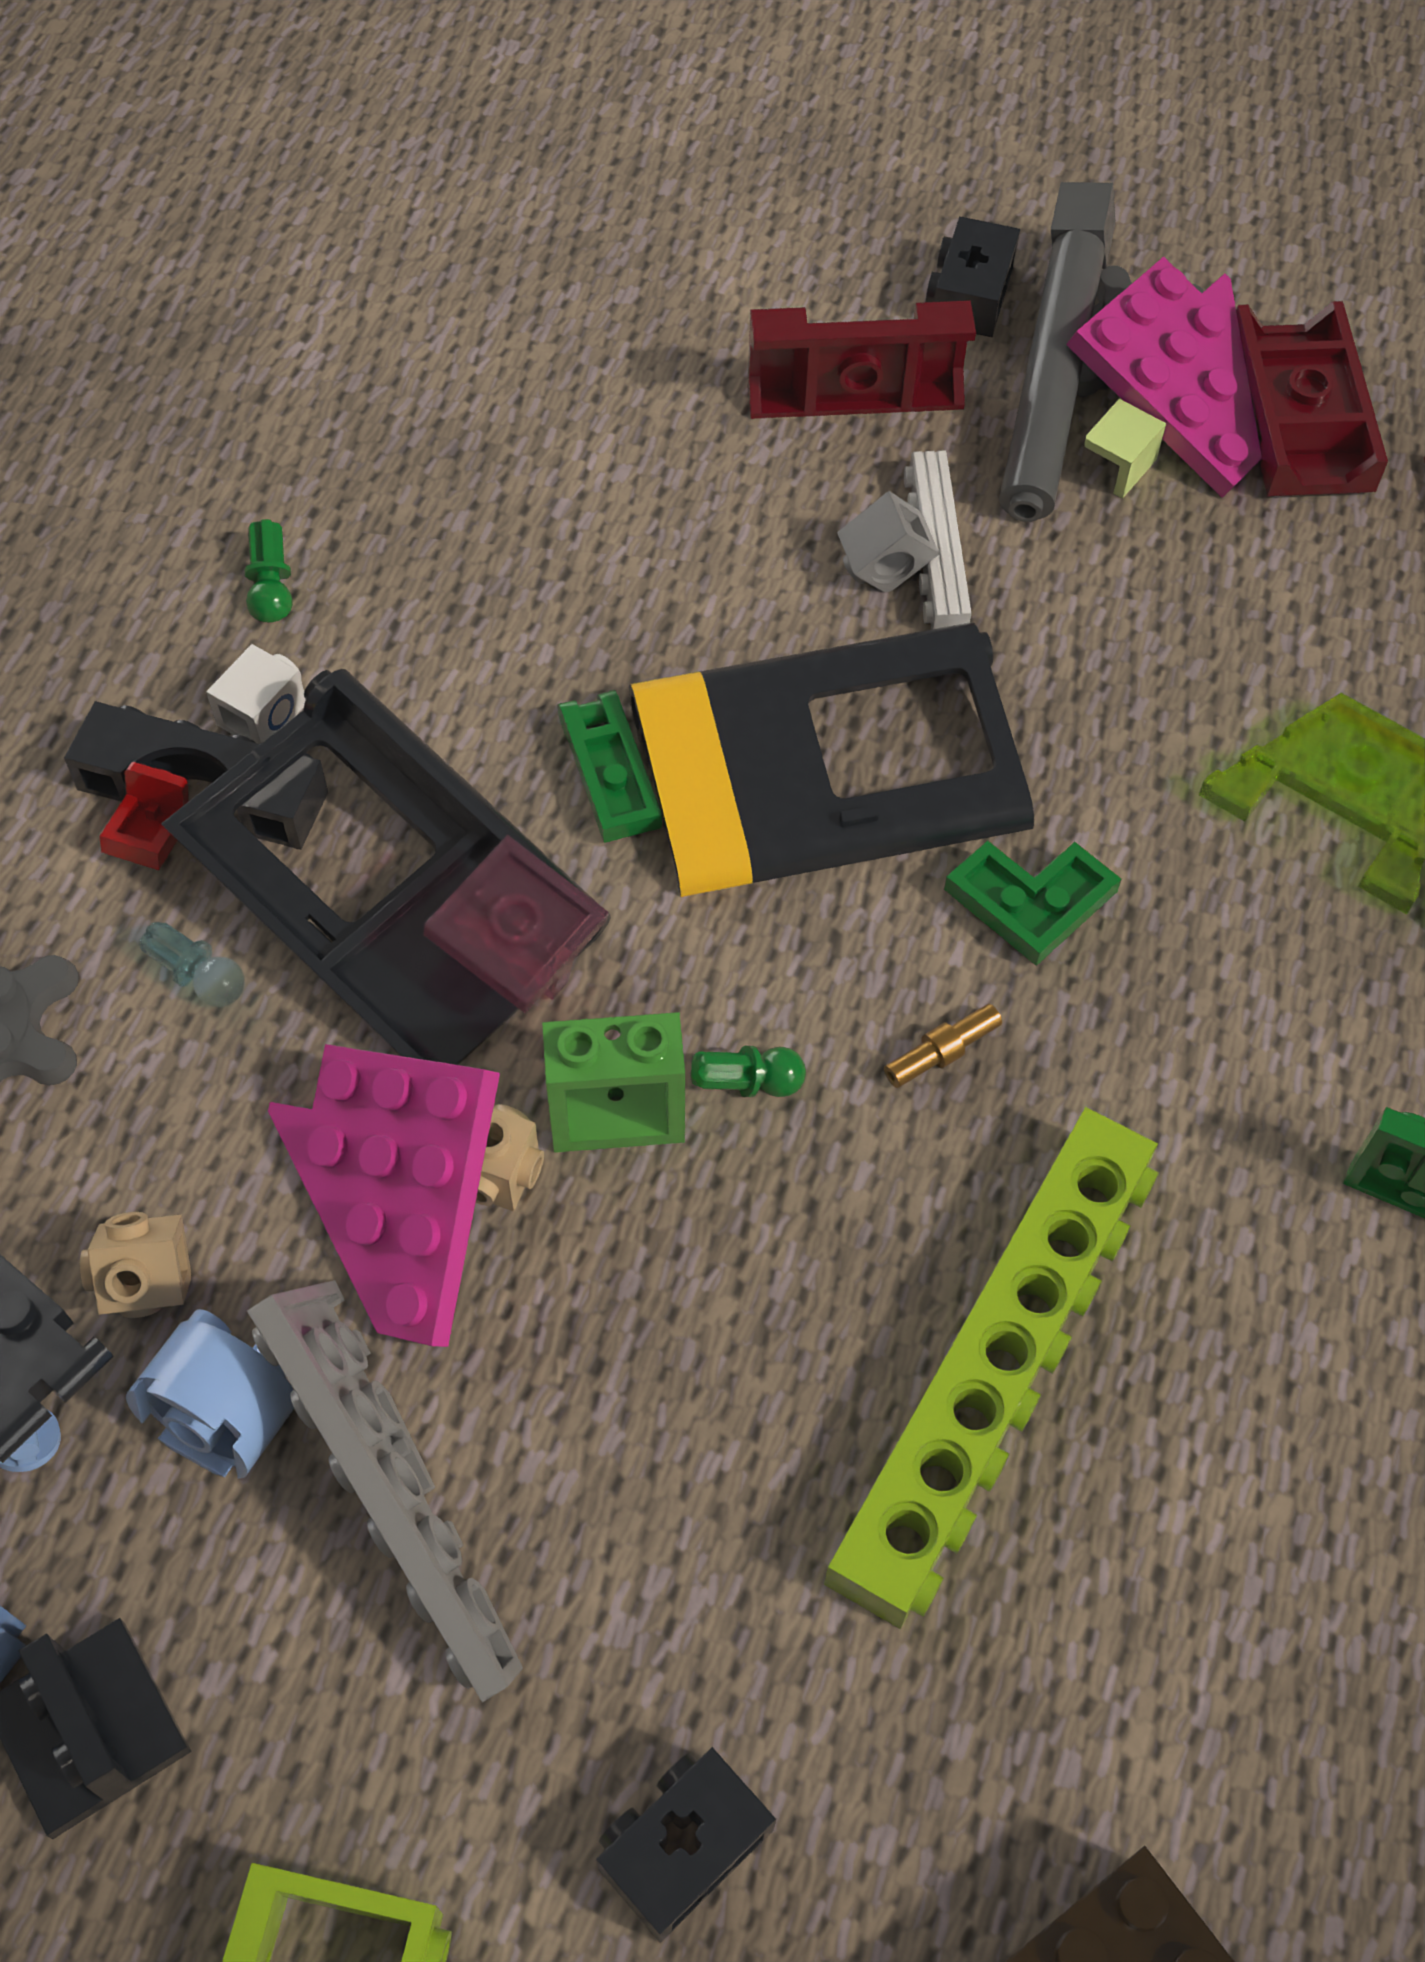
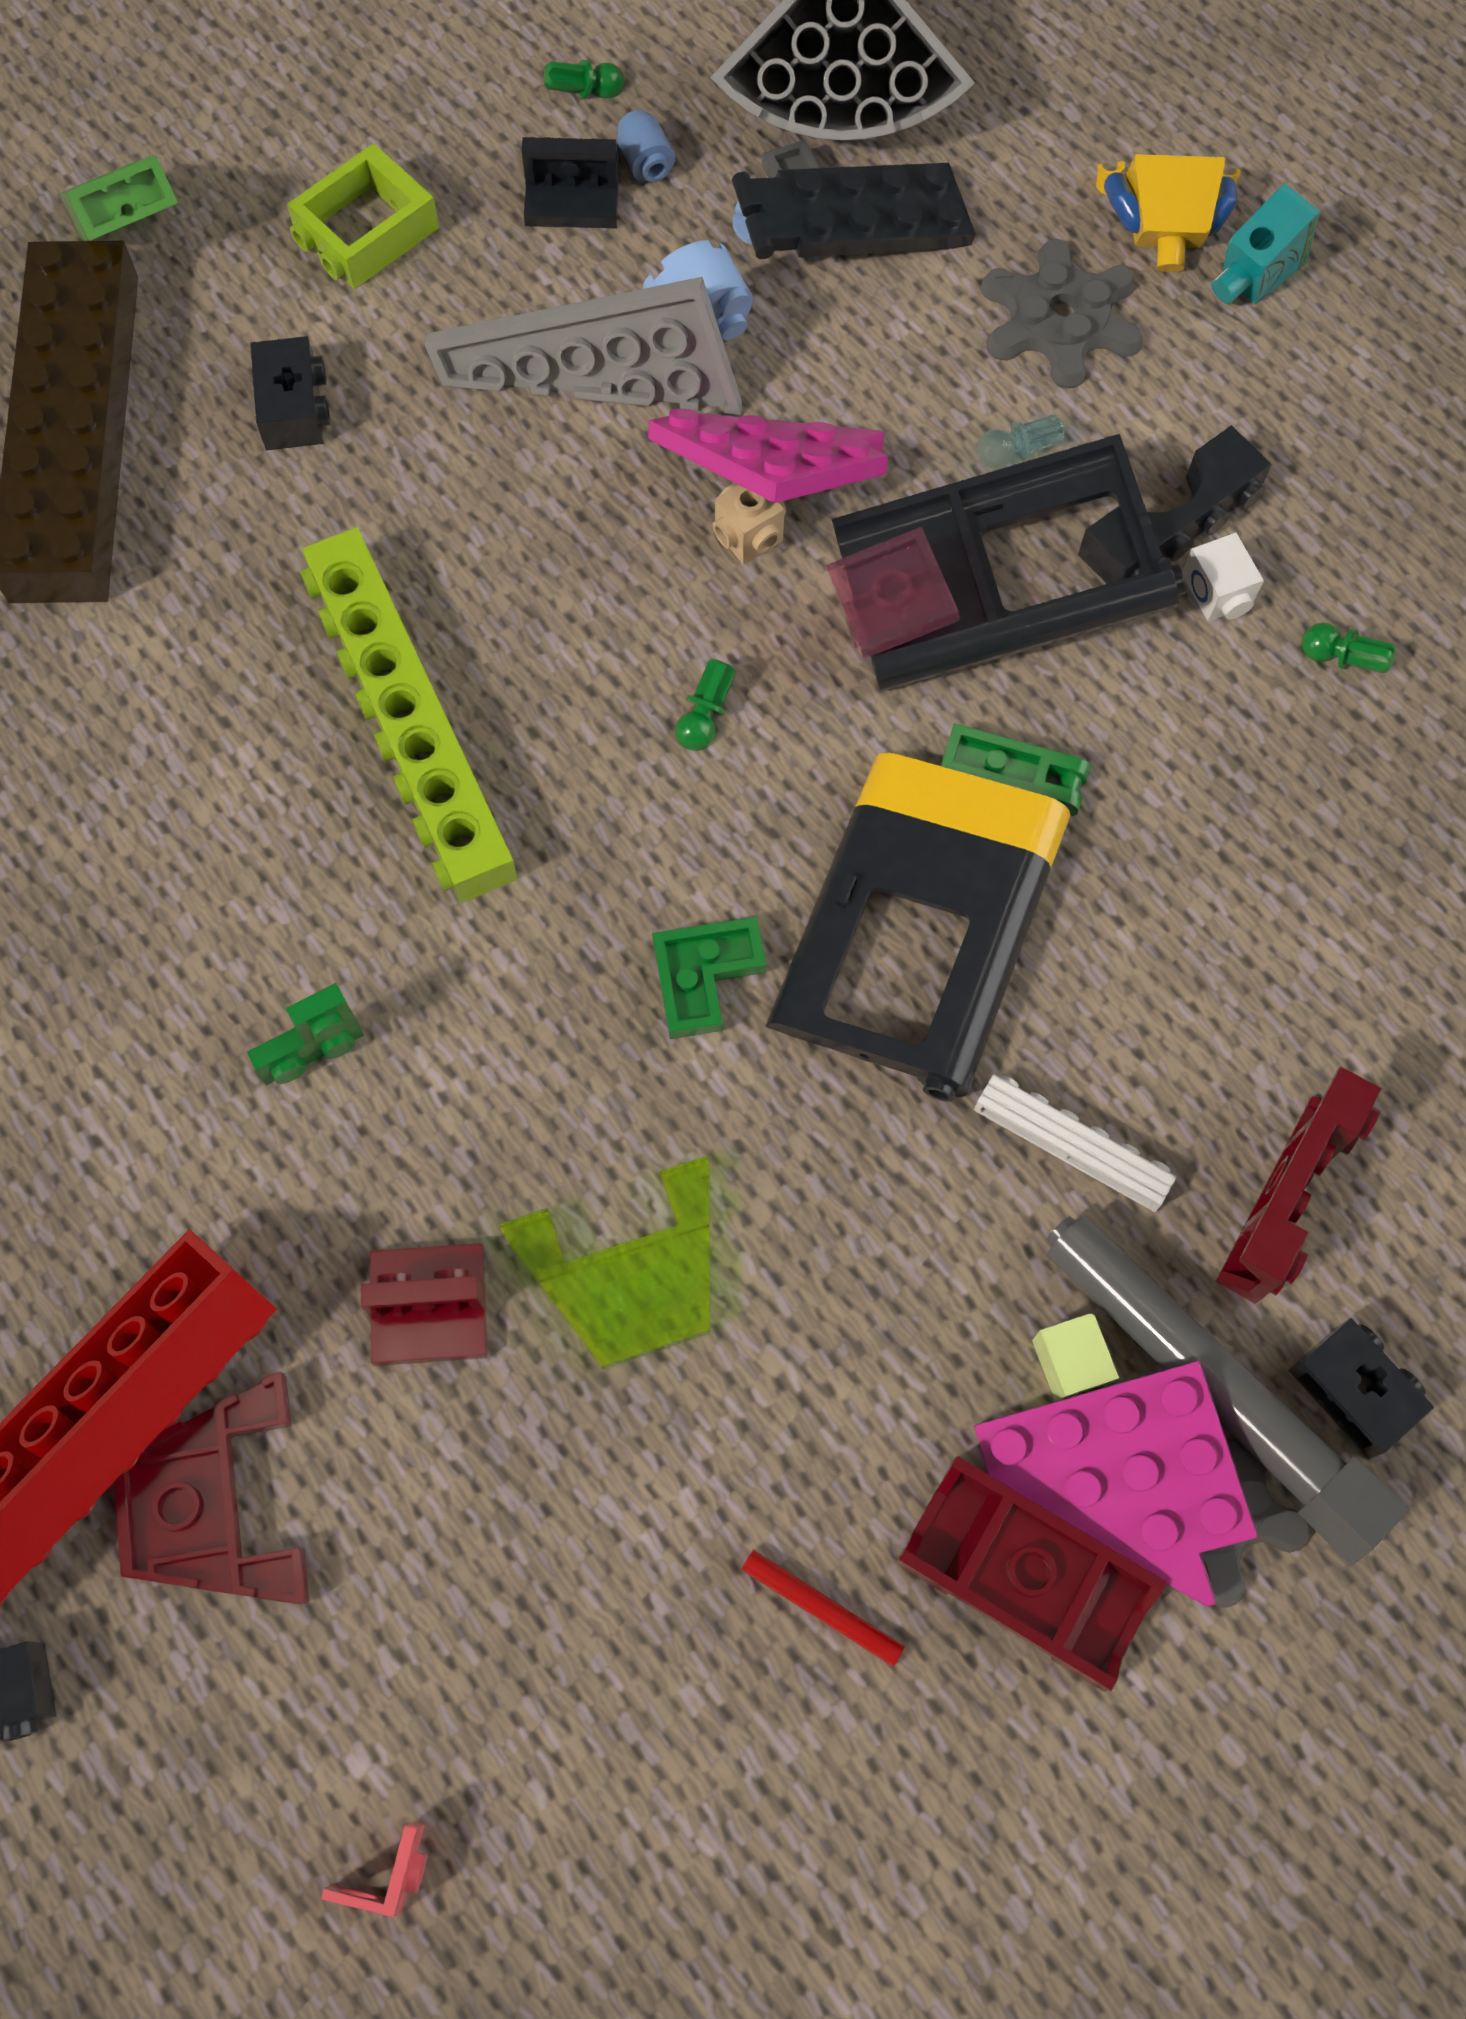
camera: 125 degrees right, 10 degrees up
(136, 825) = (1158, 464): red bracket -> none
(137, 1264) = (815, 308): tan brick -> none
(639, 1066) = (734, 583): bright green window -> none
(887, 543) = (1085, 1082): light grey brick -> none
(943, 1045) = (636, 835): pearl gold bar -> none

